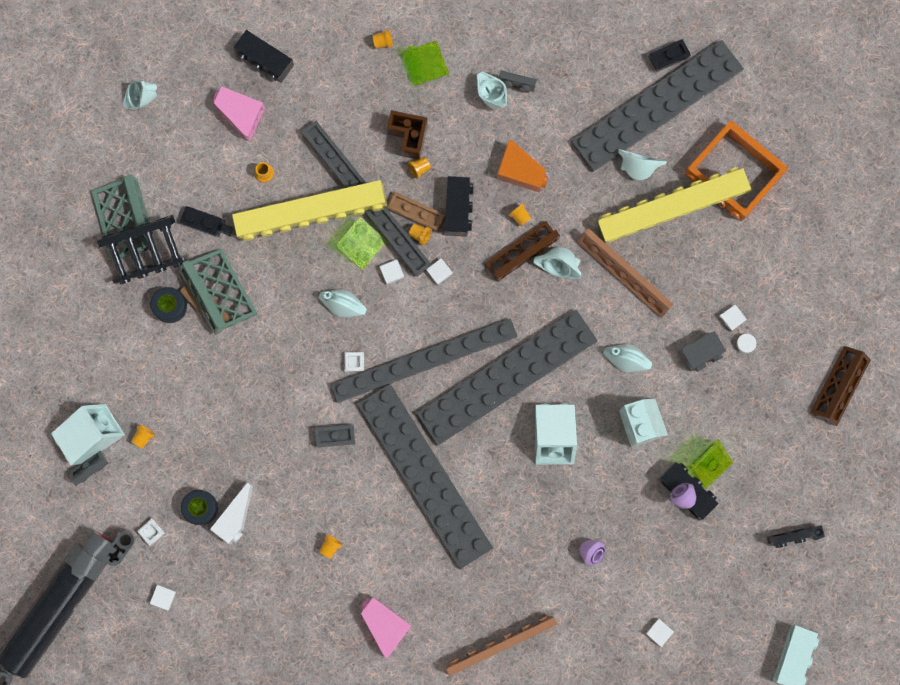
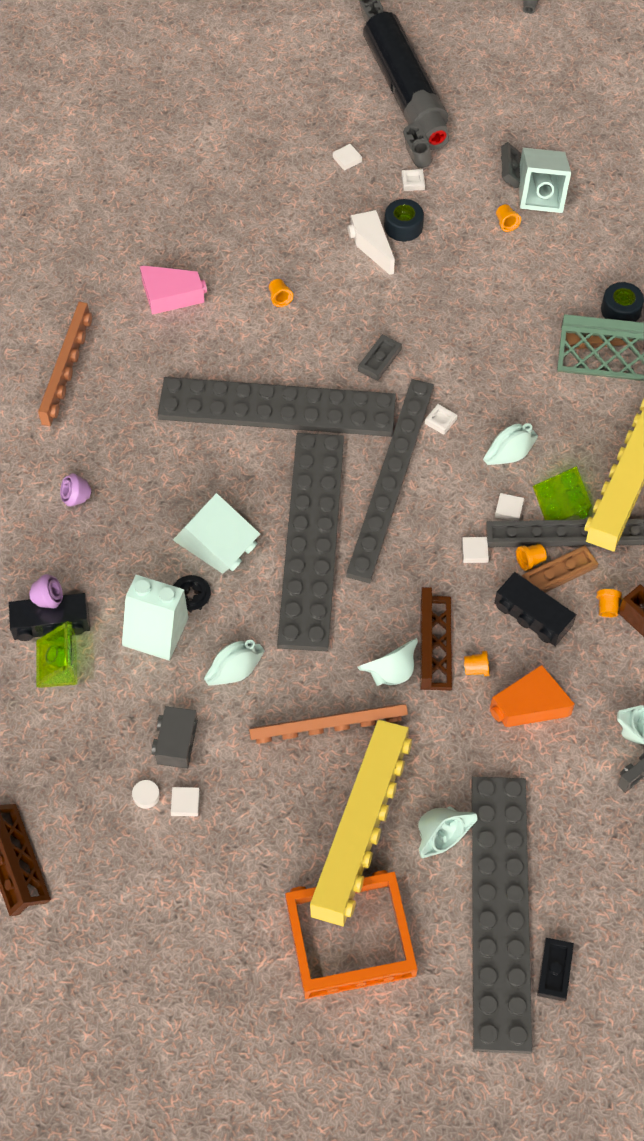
camera: 130 degrees right, 20 degrees down
(613, 420) = (199, 586): none -> black gear

